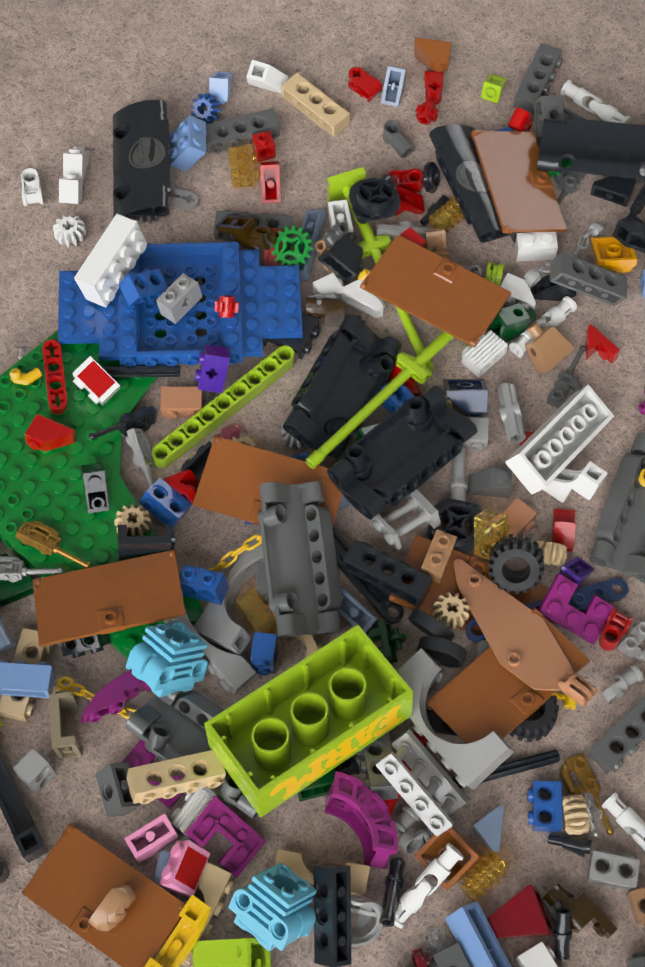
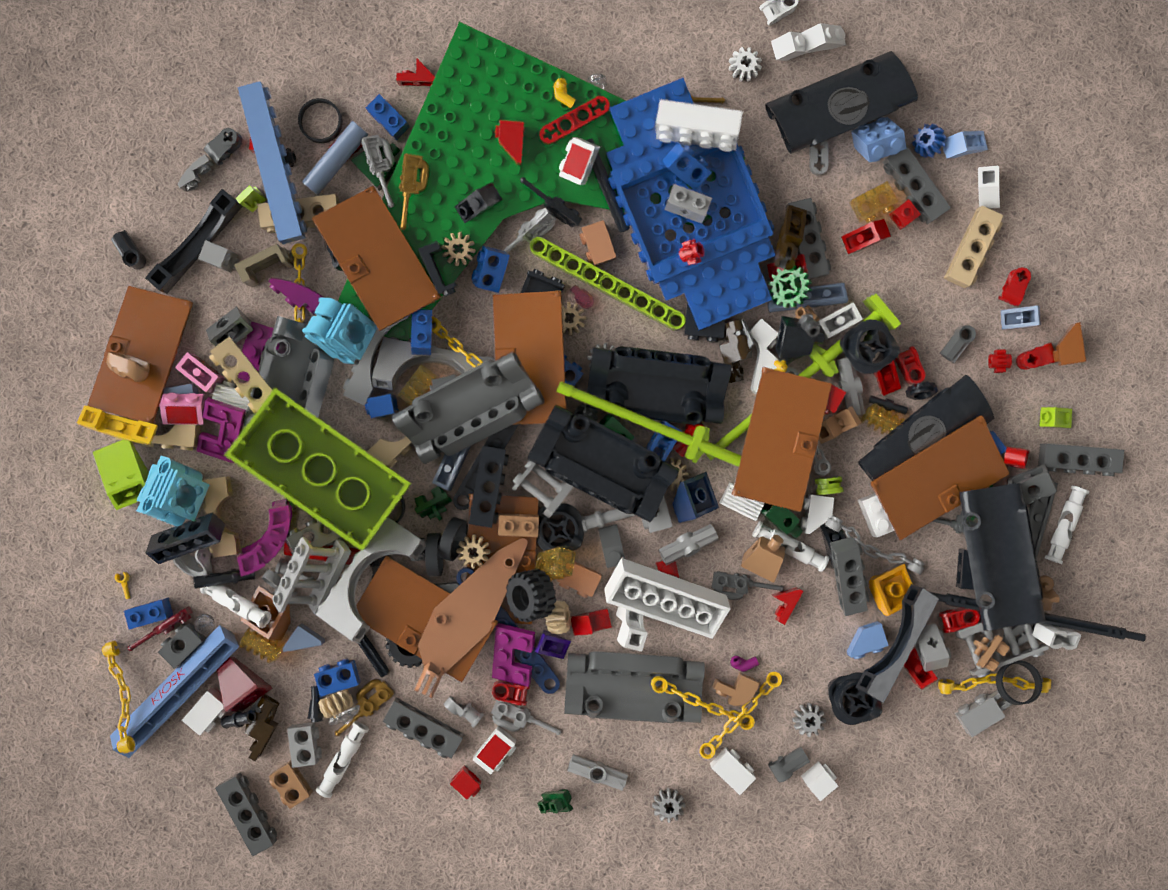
camera: 70 degrees right, 25 degrees up
(184, 484) = (512, 277): red slope -> none
(217, 359) = (631, 261): dark purple brick -> none

